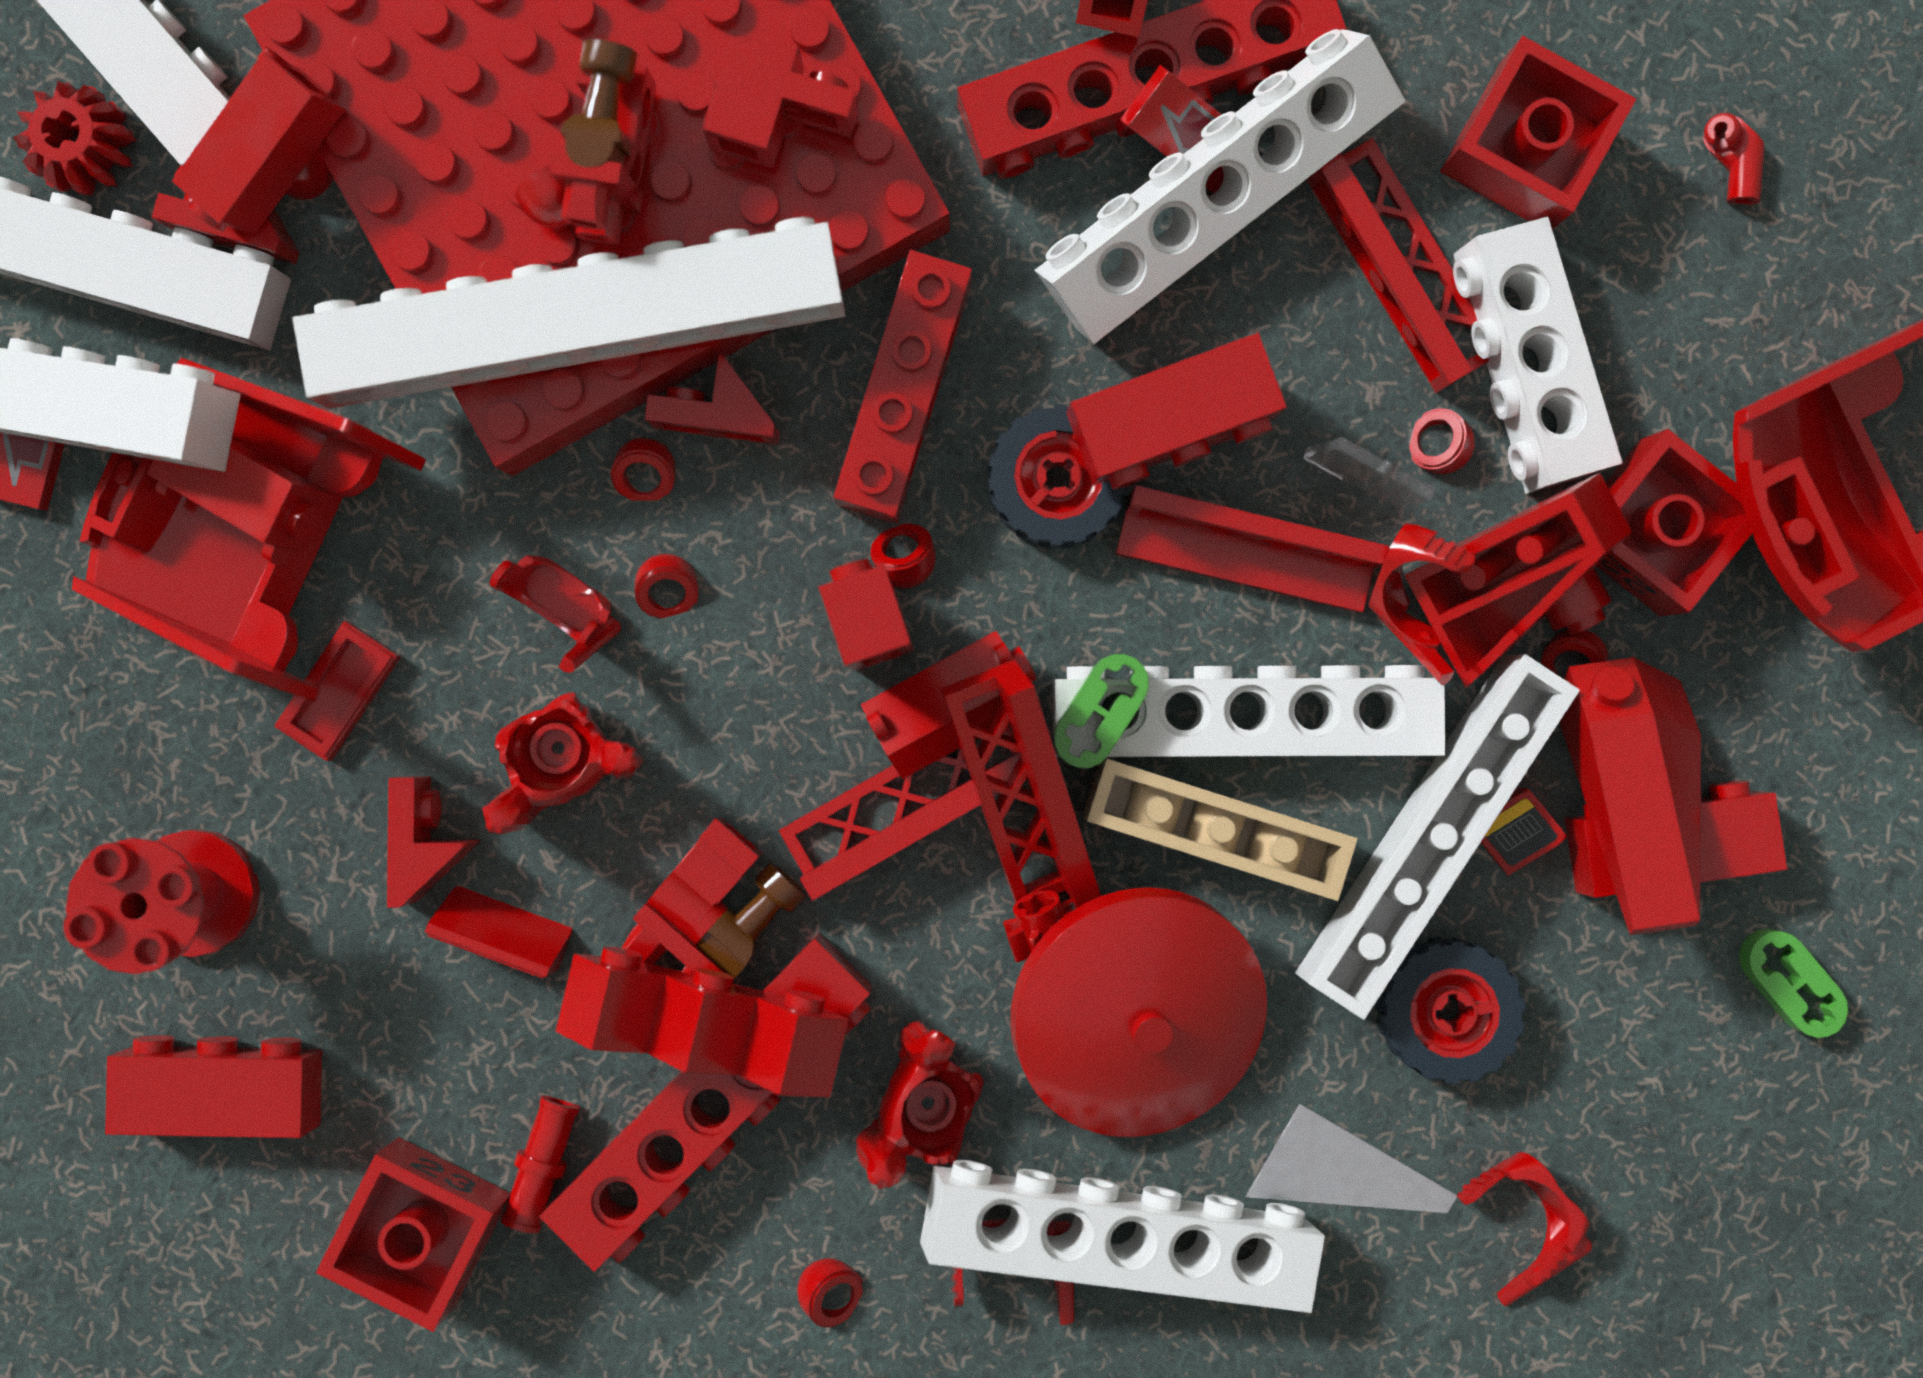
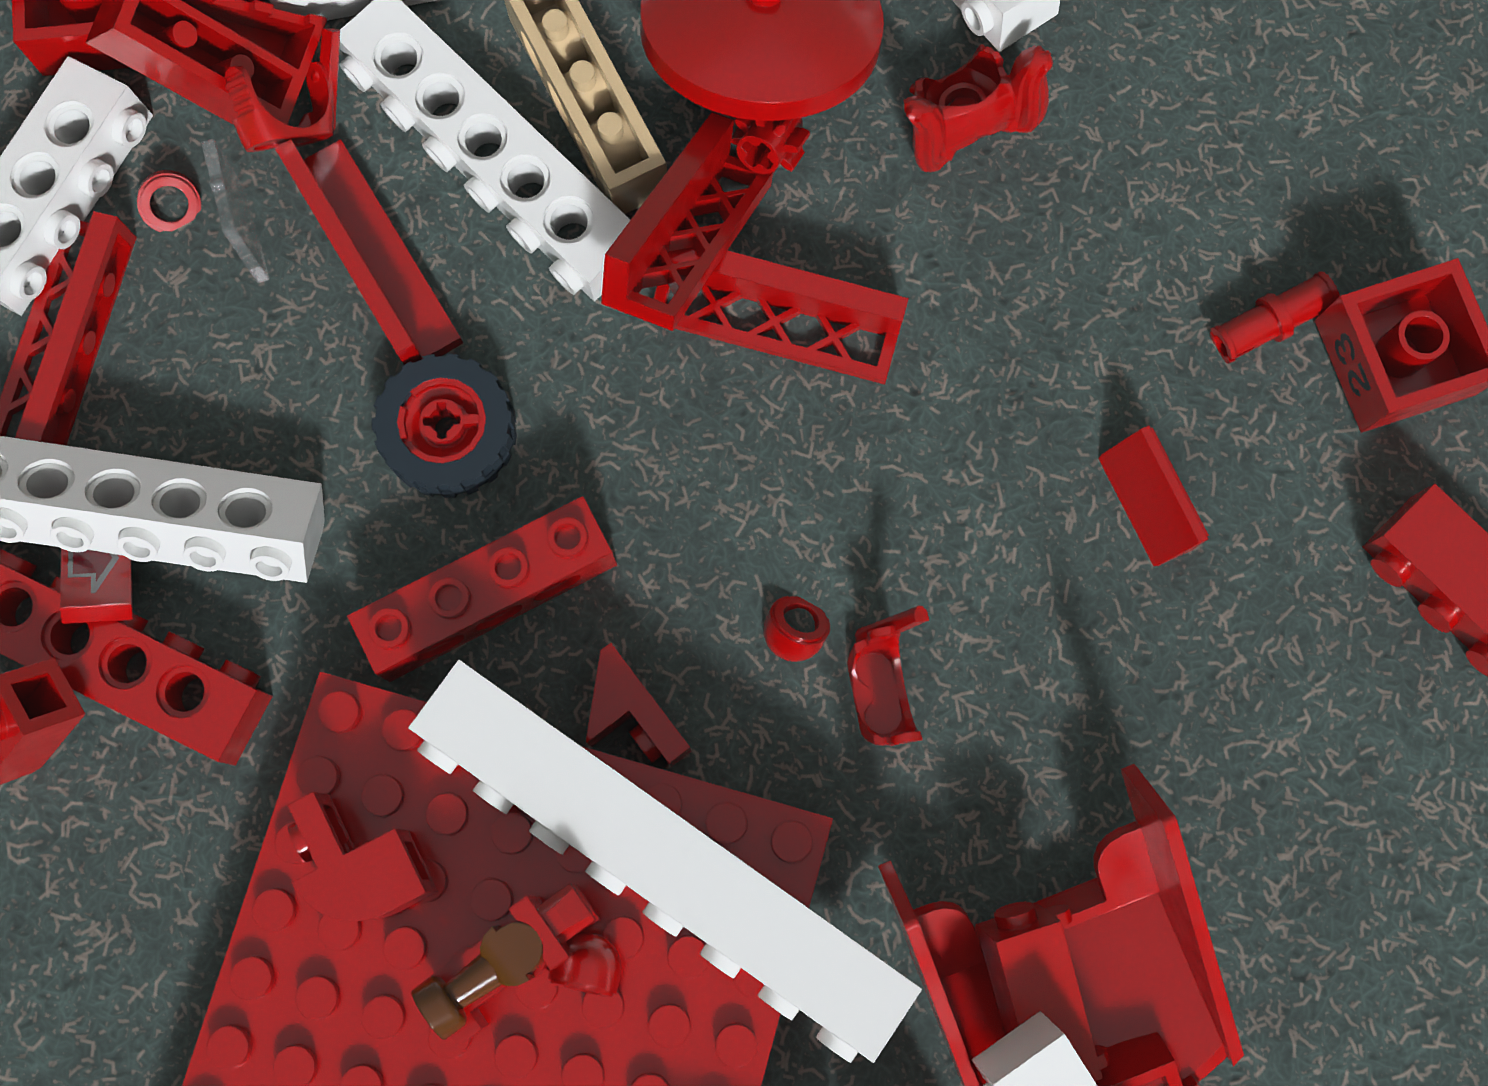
camera: 135 degrees left, 10 degrees down
(152, 901) = (1387, 740): red piece -> none
(349, 679) = (1095, 791): red tile -> none
(412, 857) = (1162, 602): red slope -> none
(550, 779) = (995, 558): red hair -> none
(585, 1211) = (1268, 227): red brick -> none
(645, 451) = (716, 739): red piece -> none
(689, 911) = (1007, 368): red hips -> none
(702, 1022) = (1067, 277): red brick -> none
(817, 1281) = (1156, 67): red piece -> none
(865, 615) = (672, 433): red brick -> none
(909, 570) = (616, 467): red piece -> none
(913, 714) = (698, 351): red brick -> none
(1114, 719) = (580, 225): bright green beam -> none
(1177, 412) = (314, 367): red wedge -> none

